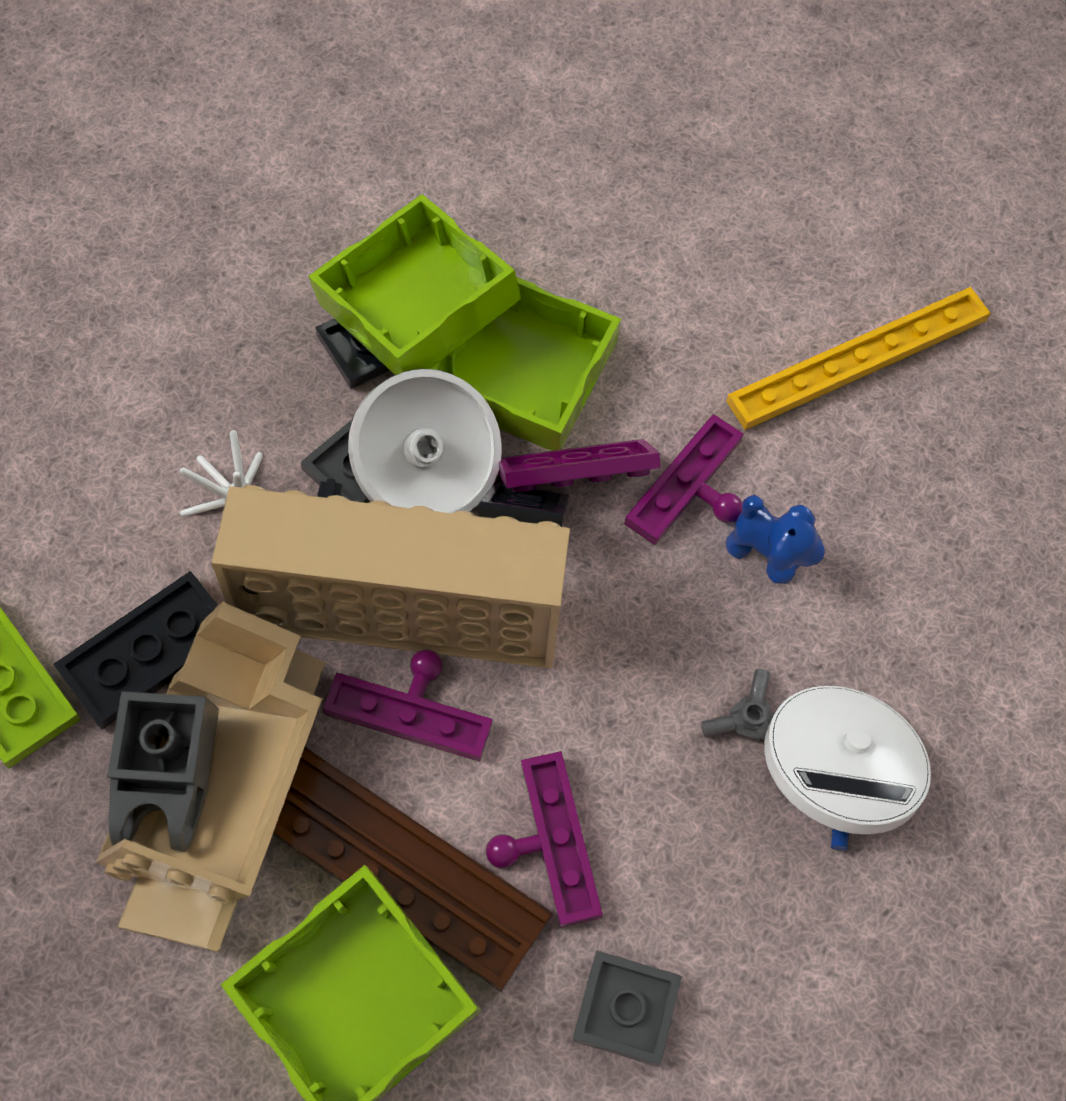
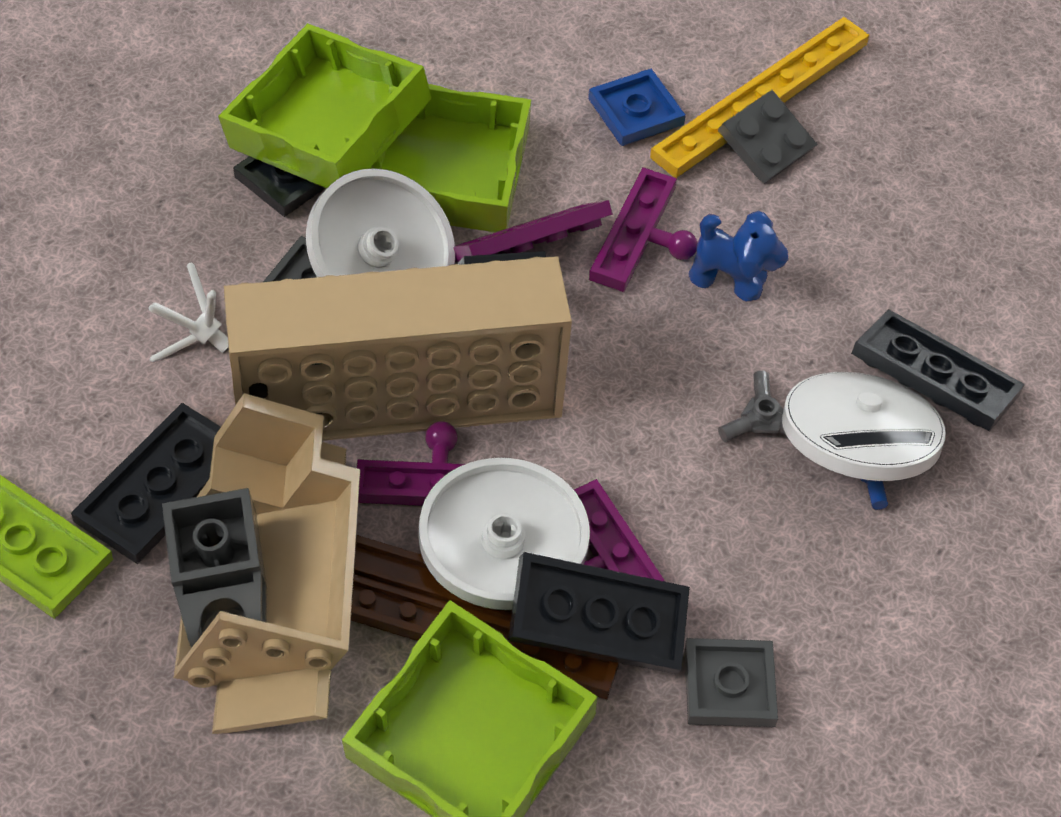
camera: 15 degrees left, 10 degrees down
(448, 794) = (491, 514): none -> white dish
(512, 910) = (599, 613): none -> black plate
(729, 343) = (636, 107): none -> blue plate
(850, 406) = (767, 136): none -> dark grey plate
(945, 711) = (938, 369): none -> black plate

